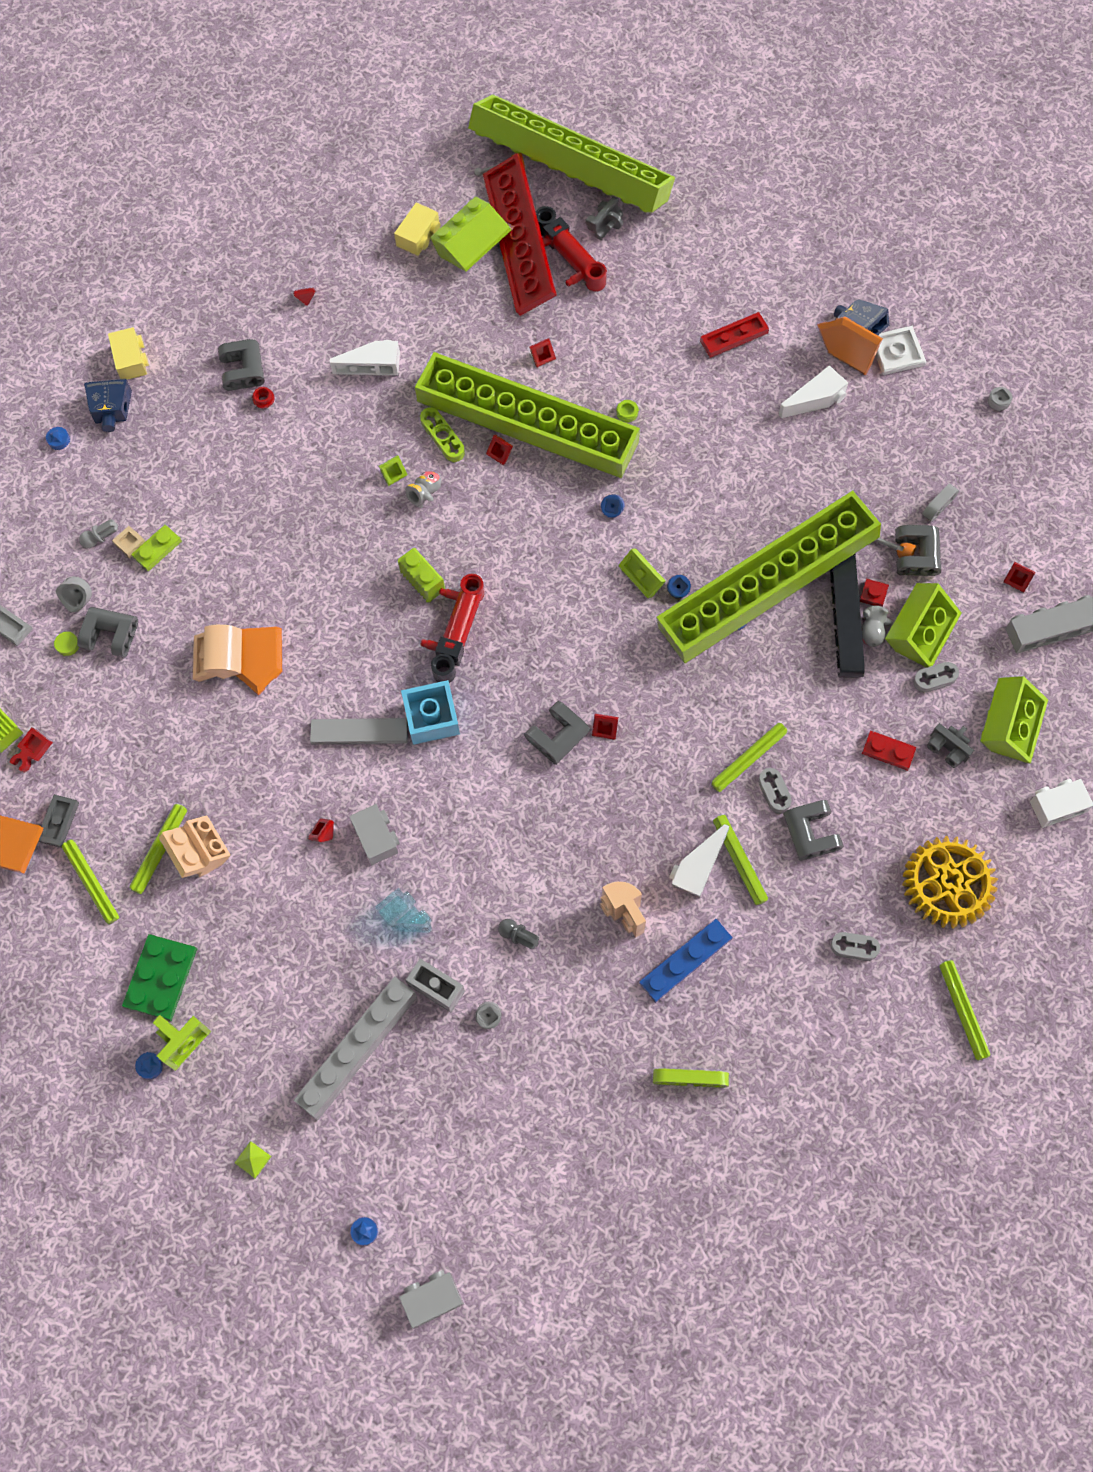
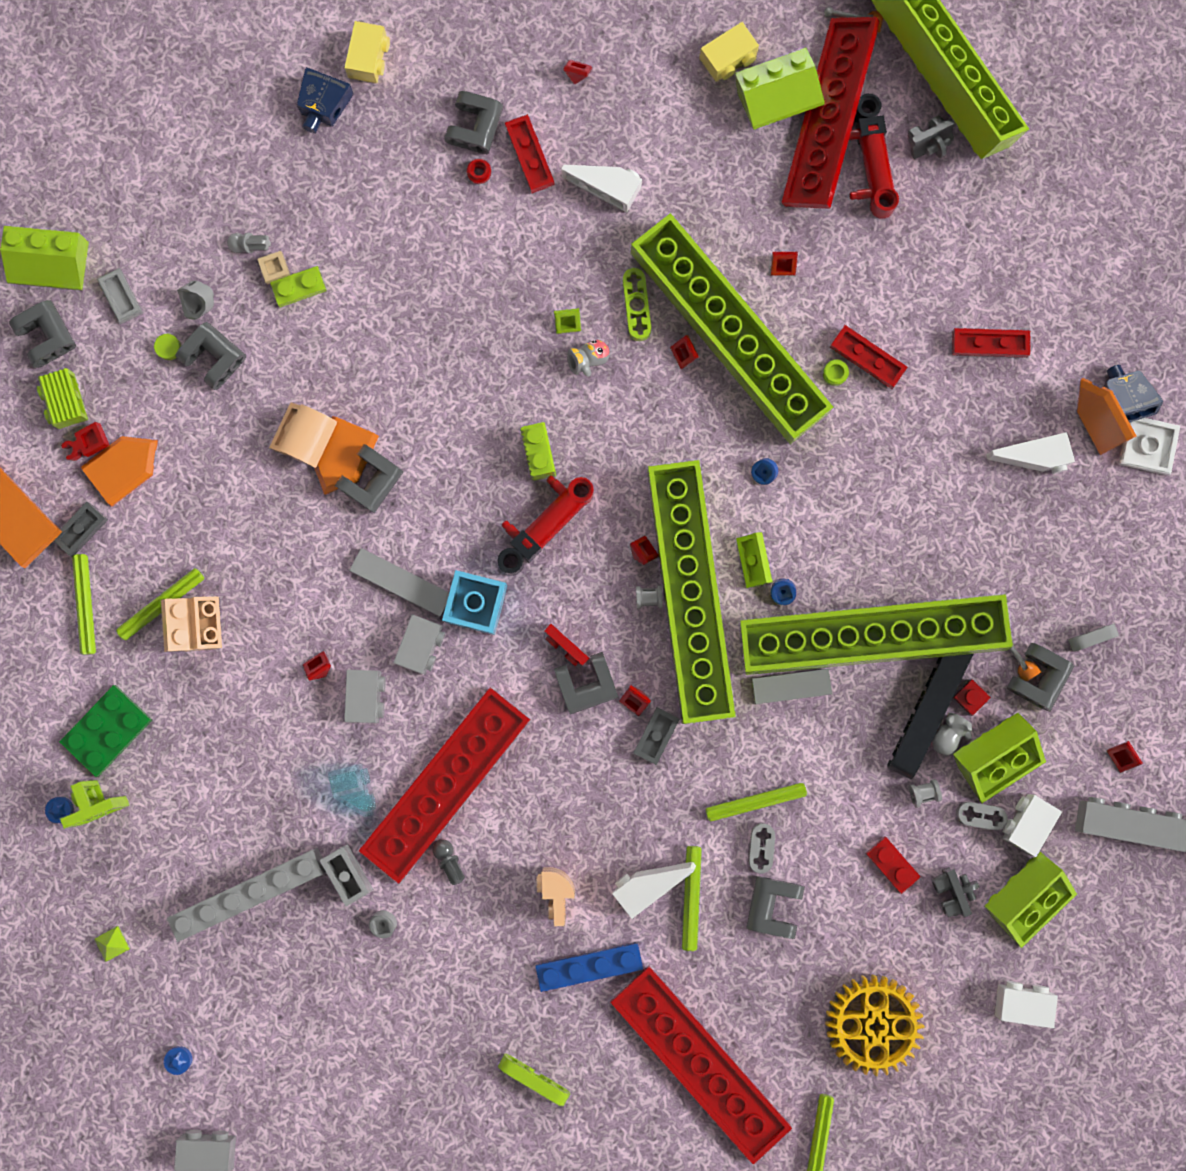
camera: 25 degrees right, 15 degrees up
(58, 438) = (256, 113): blue tile -> none
(71, 756) = (121, 467): none -> orange tile
(298, 367) = (529, 153): none -> red plate
(302, 663) = (378, 486): none -> dark grey connector
(400, 770) = (419, 645): none -> light grey brick
(481, 874) = (444, 785): none -> red plate
(532, 712) = (573, 653): none -> red plate
(547, 610) = (643, 550): none -> red slope
(572, 641) = (649, 597): none -> light grey bush
(605, 621) = (690, 592): none -> lime brick
(638, 745) = (656, 736): none -> dark grey plate
(646, 387) = (868, 357): none -> red plate
(726, 654) = (791, 686): none -> light grey tile
(826, 991) = (701, 1065): none -> red plate
(855, 940) = (747, 1041): light grey beam -> none
(881, 680) = (925, 793): none -> light grey bush
(979, 662) = (1031, 824): none -> white brick

